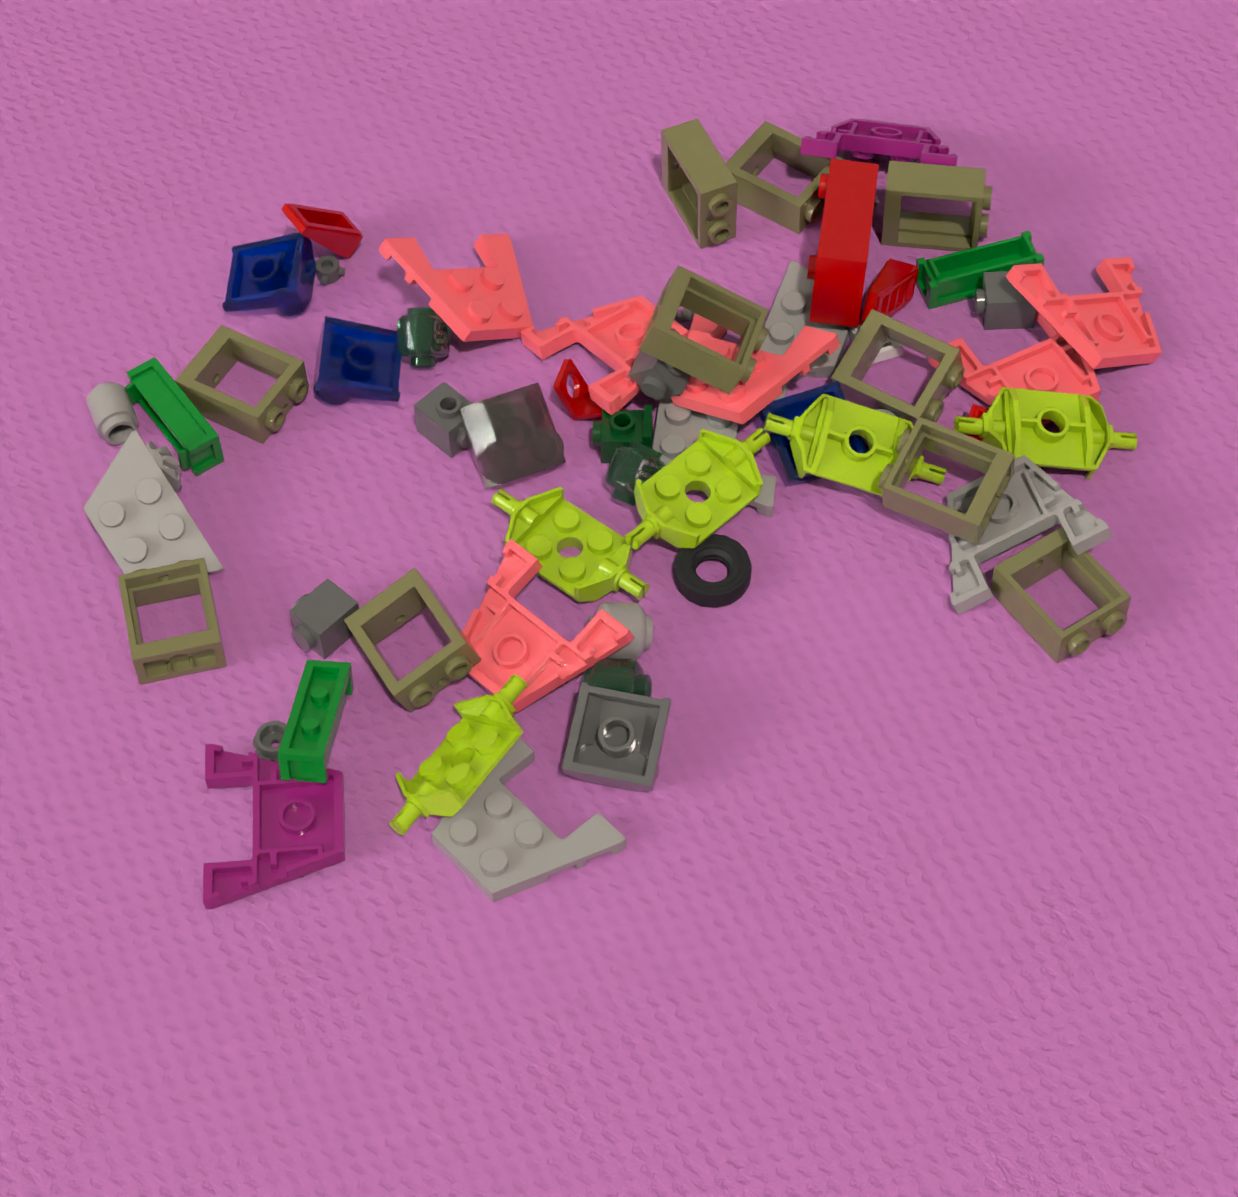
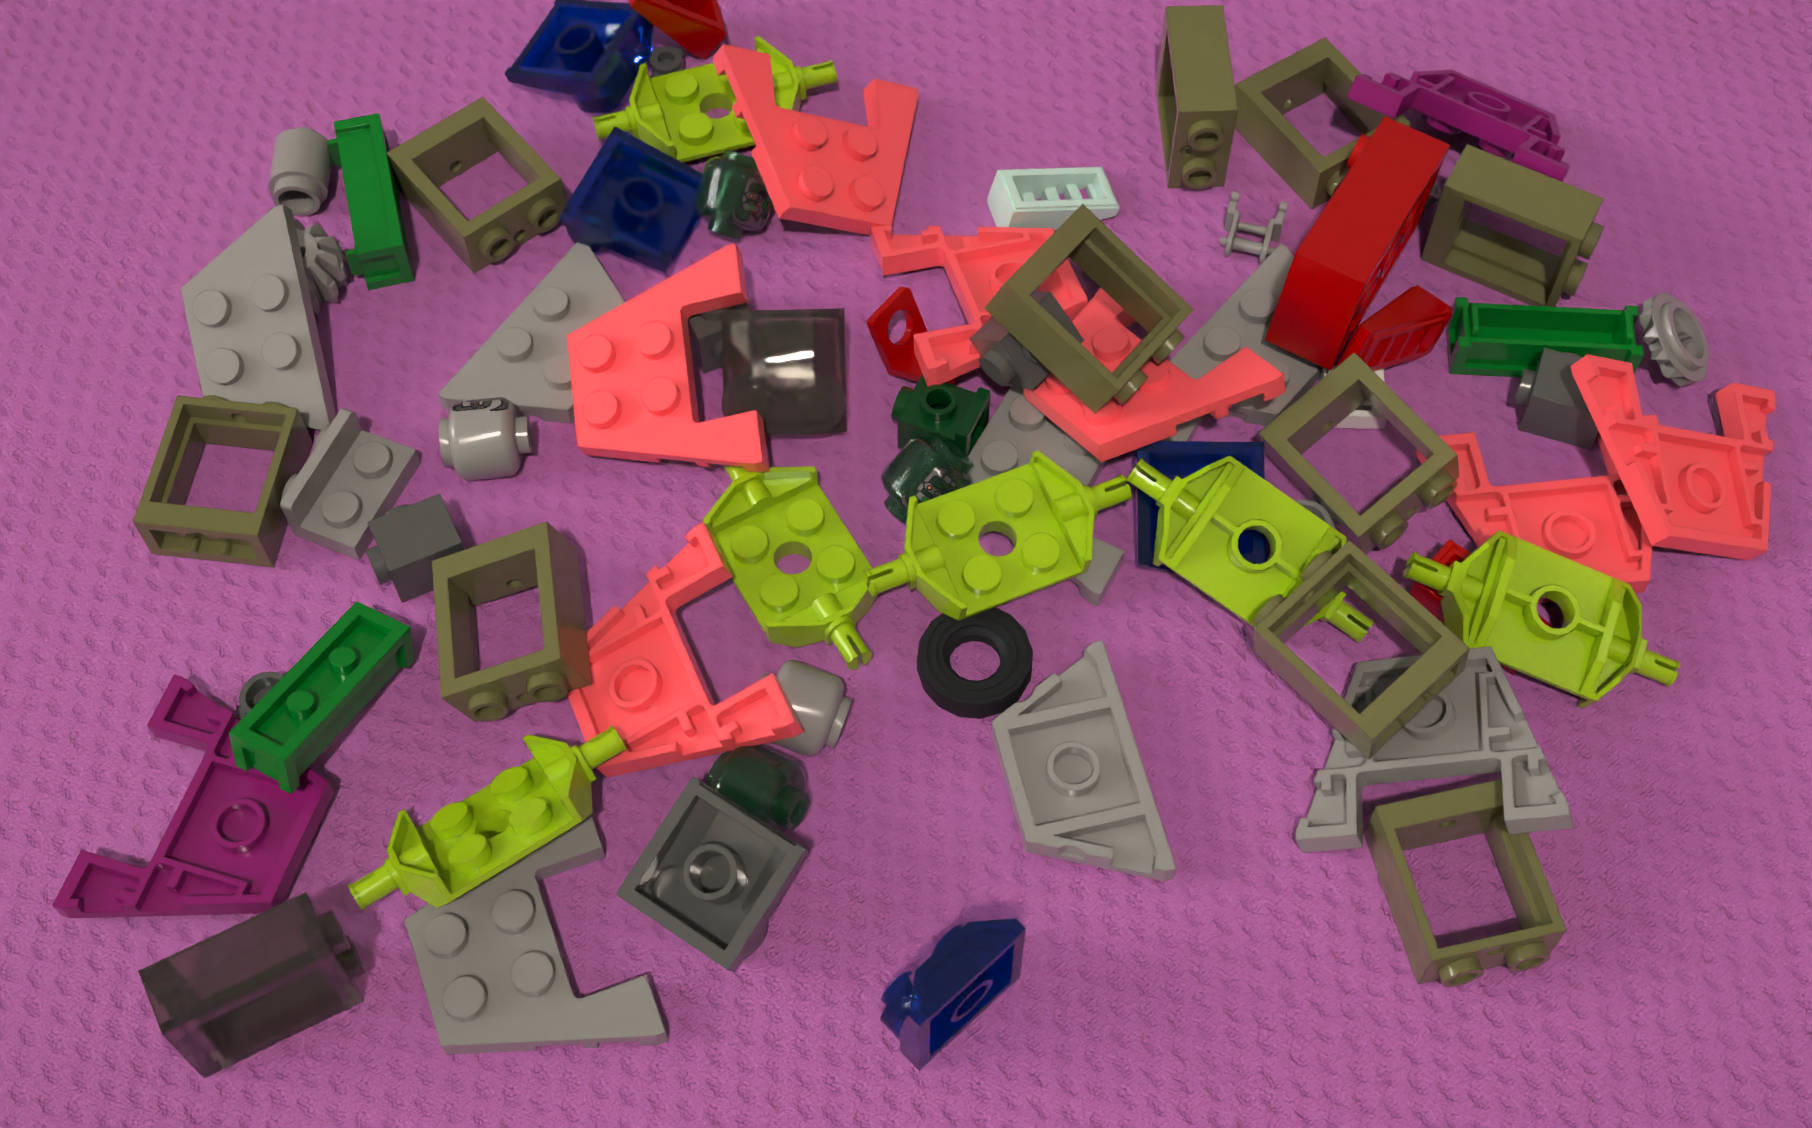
camera: 20 degrees right, 5 degrees up
(254, 600) = (345, 485): none -> light grey bracket
(333, 540) = (484, 438): none -> light grey head
(344, 471) = (529, 350): none -> light grey wing
(347, 291) = (672, 107): none -> lime plate
(365, 892) = (254, 984): none -> clear smoke window
(420, 468) = (638, 375): none -> coral wing
(604, 283) = (1016, 190): none -> light aqua slope
(754, 258) = (1232, 224): none -> light grey piece
(789, 748) = (953, 986): none -> clear blue slope
(808, 612) = (1080, 774): none -> light grey wing
(1059, 243) = (1675, 339): none -> light grey gear

